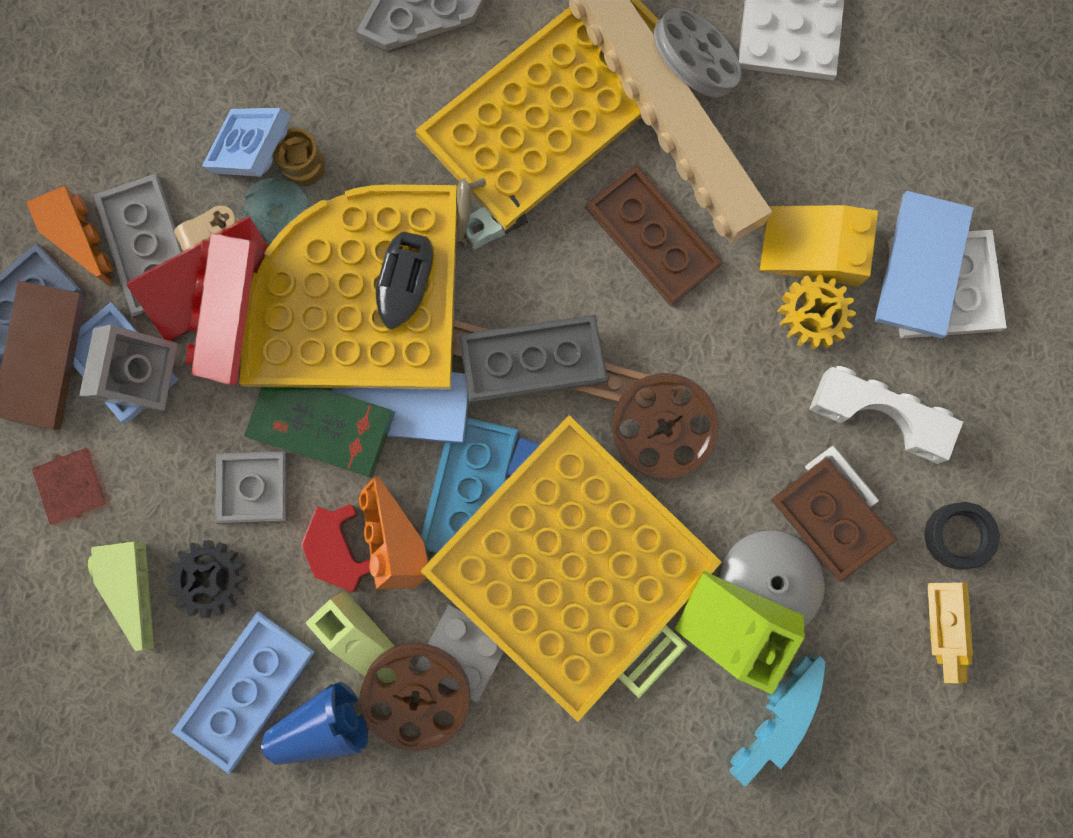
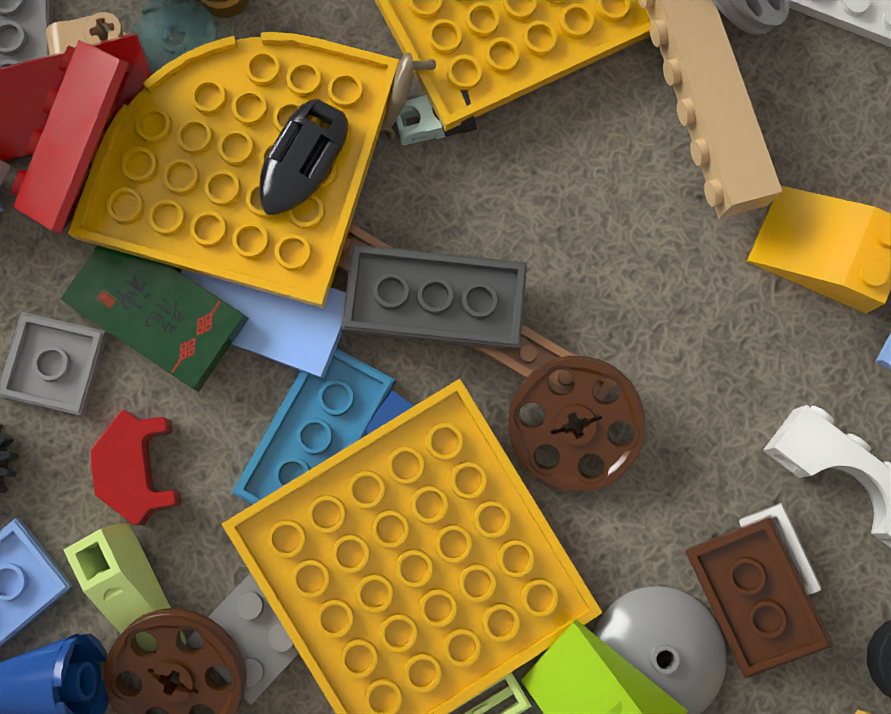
camera: 15 degrees right, 0 degrees up
(393, 542) = (202, 480): orange slope -> none
(653, 235) = (627, 184): reddish brown tile -> none
(820, 297) = (814, 314): yellow gear -> none

